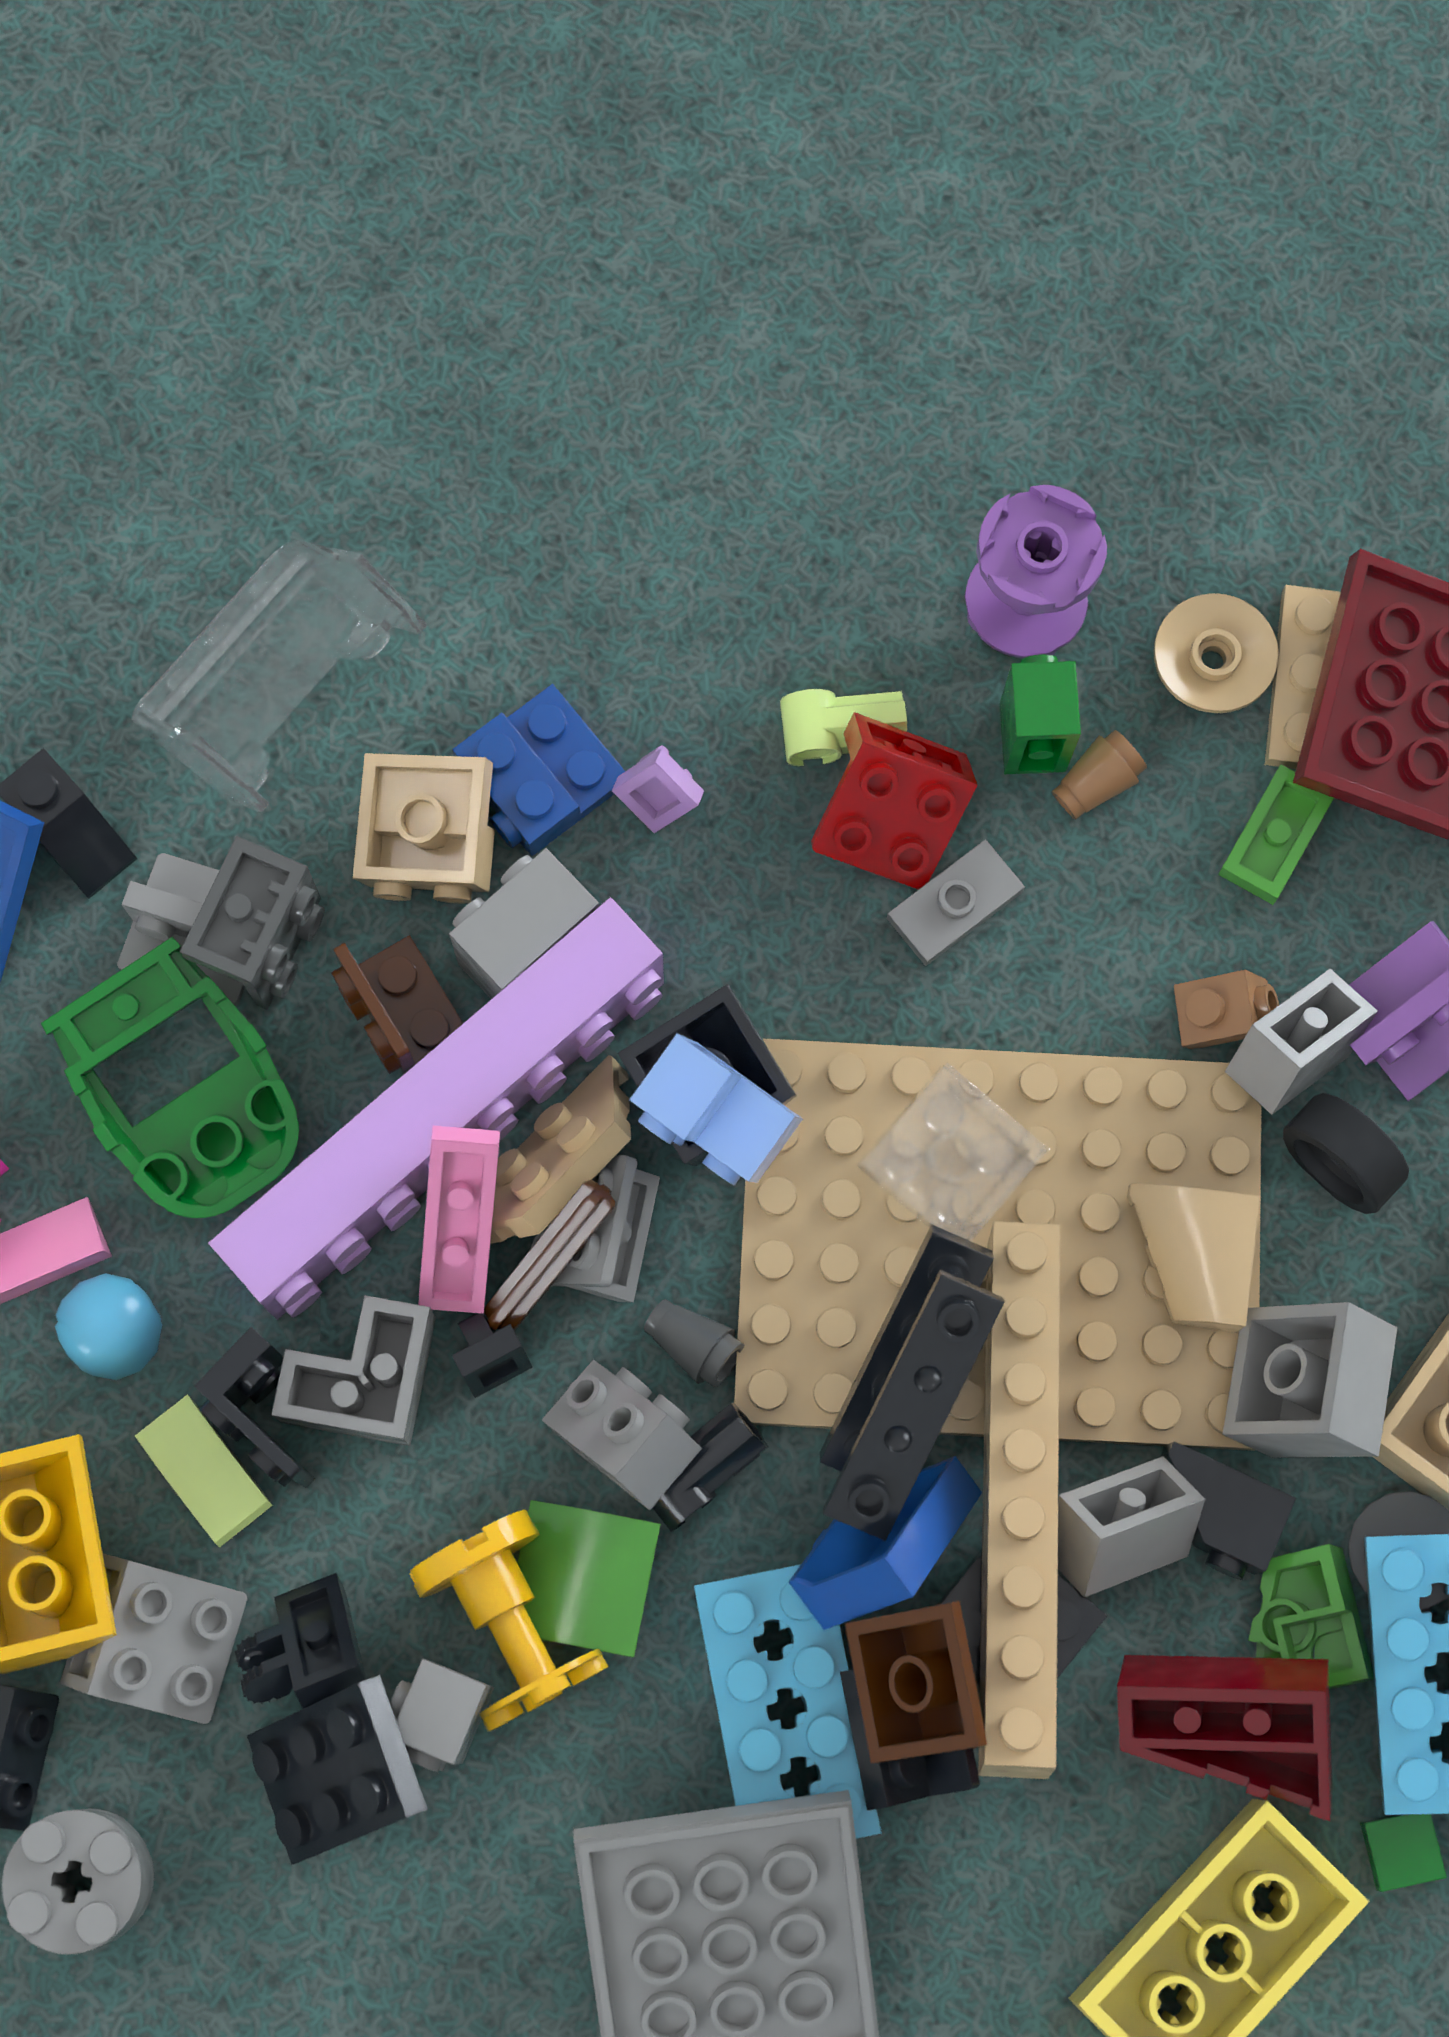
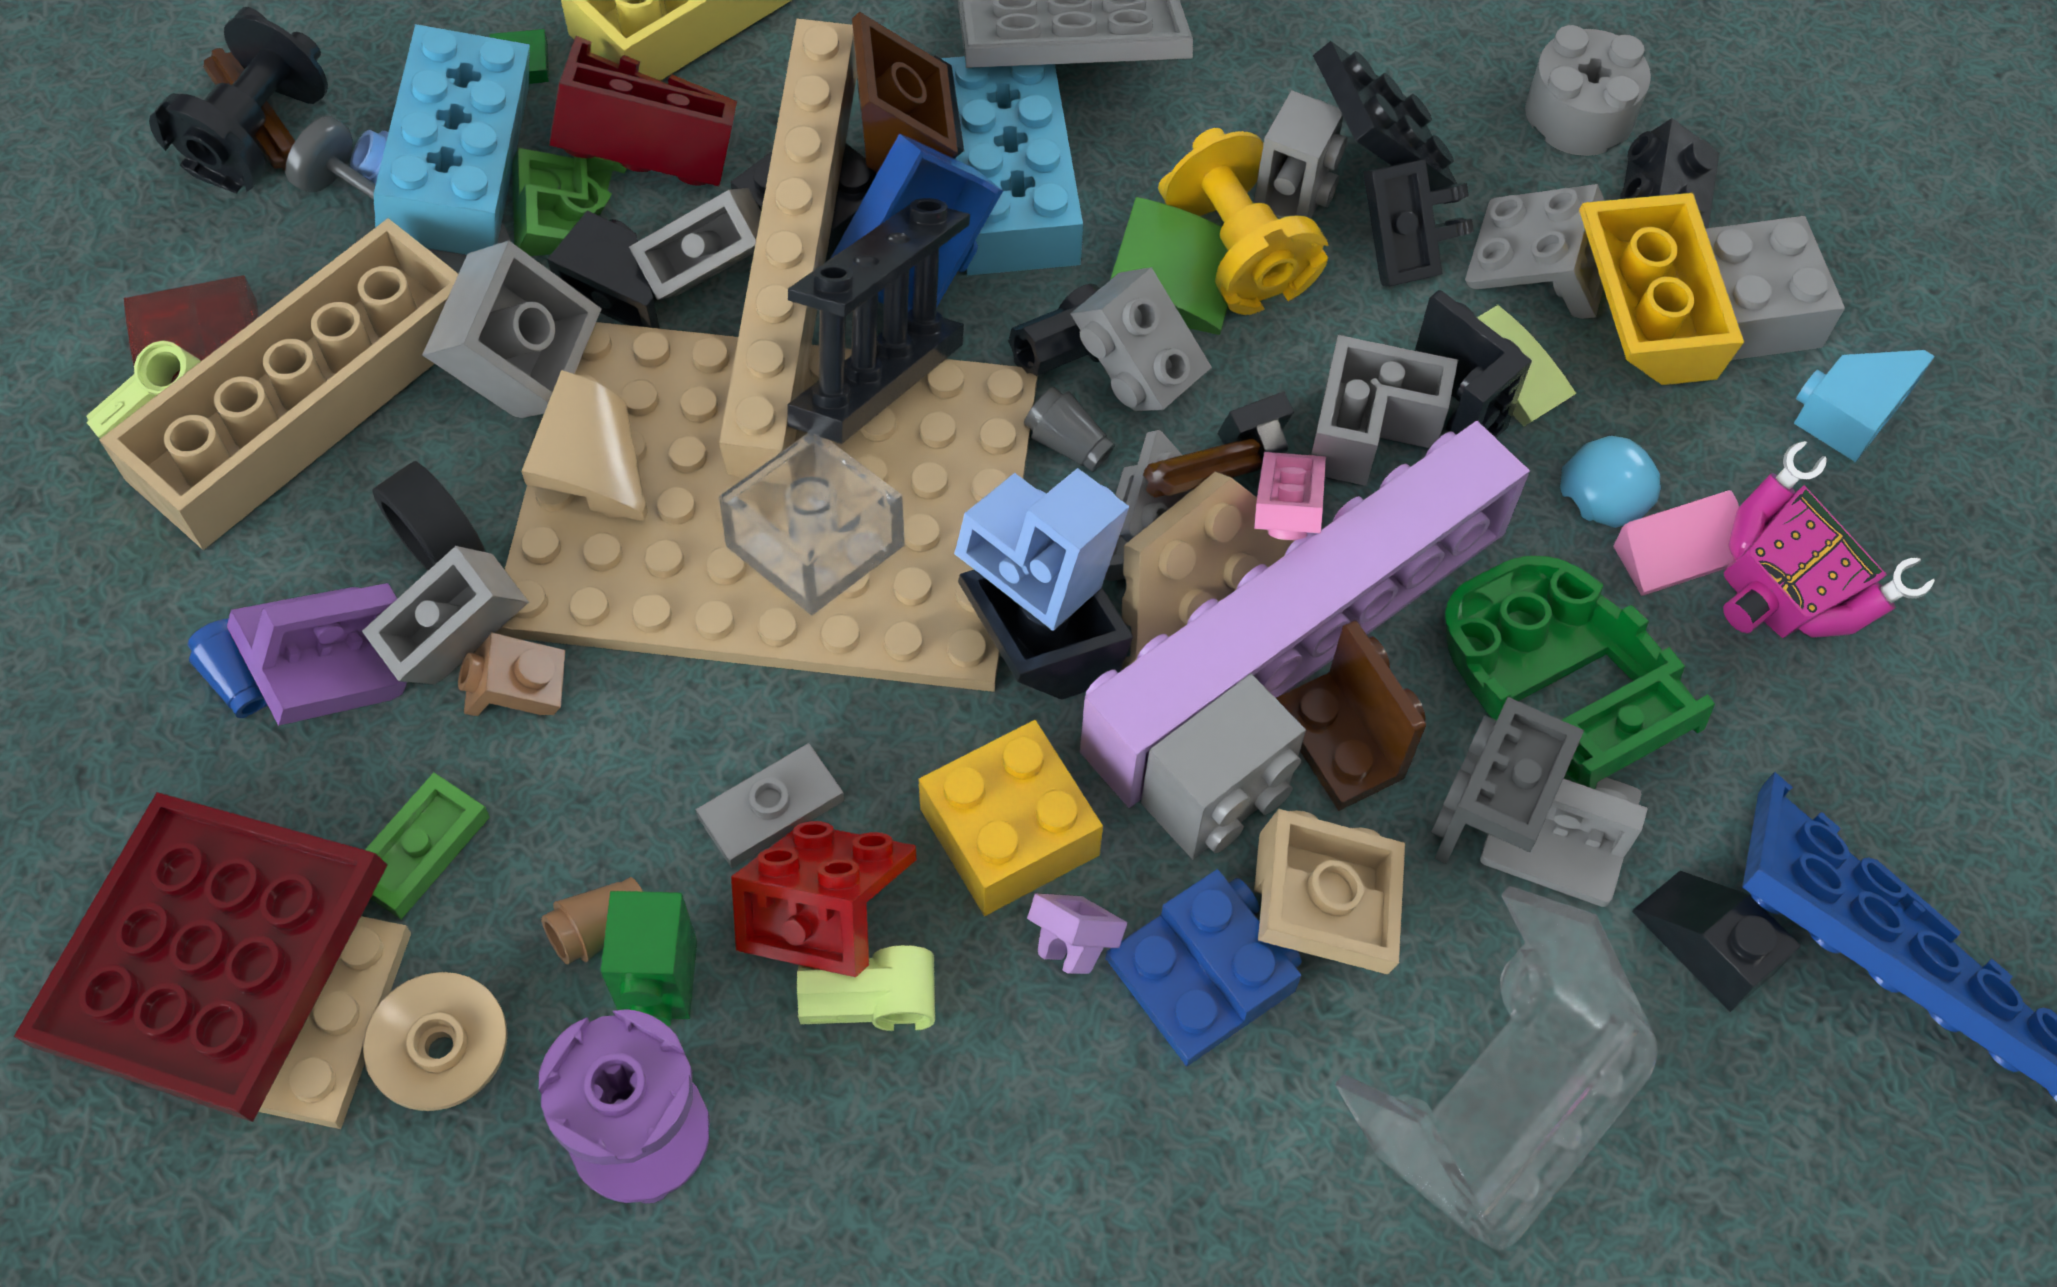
camera: 175 degrees left, 15 degrees down
(727, 887) = (1010, 817): none -> yellow brick

